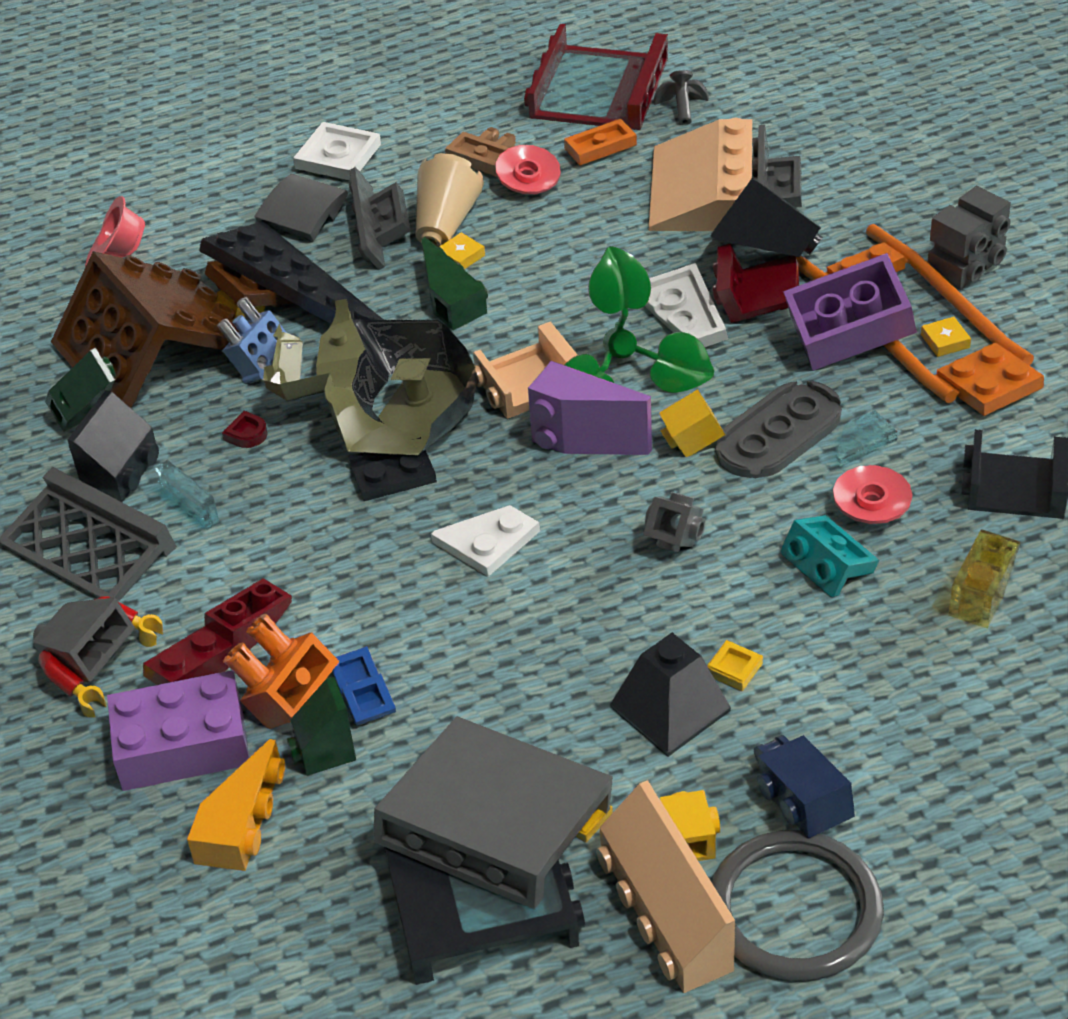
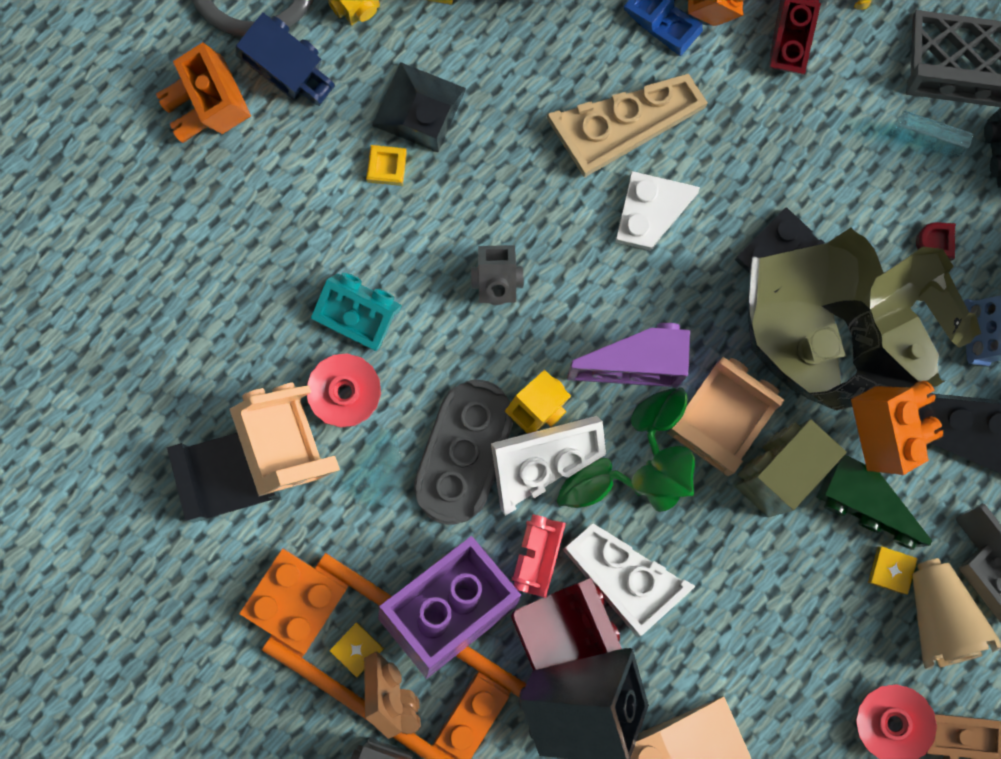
camera: 145 degrees right, 35 degrees up
(400, 291) = (891, 427): none -> orange brick
(474, 609) = (613, 127): none -> tan wing
(506, 293) = (790, 468): none -> olive brick
(722, 389) = (539, 458): none -> white wing
(752, 337) = (542, 542): none -> coral hinge
(899, 781) = (212, 90): none -> orange brick
(936, 275) = (387, 705): none -> medium nougat hinge
(952, 458) = (279, 439): none -> light nougat panel
(983, 578) = (212, 324): clear yellow slope -> none

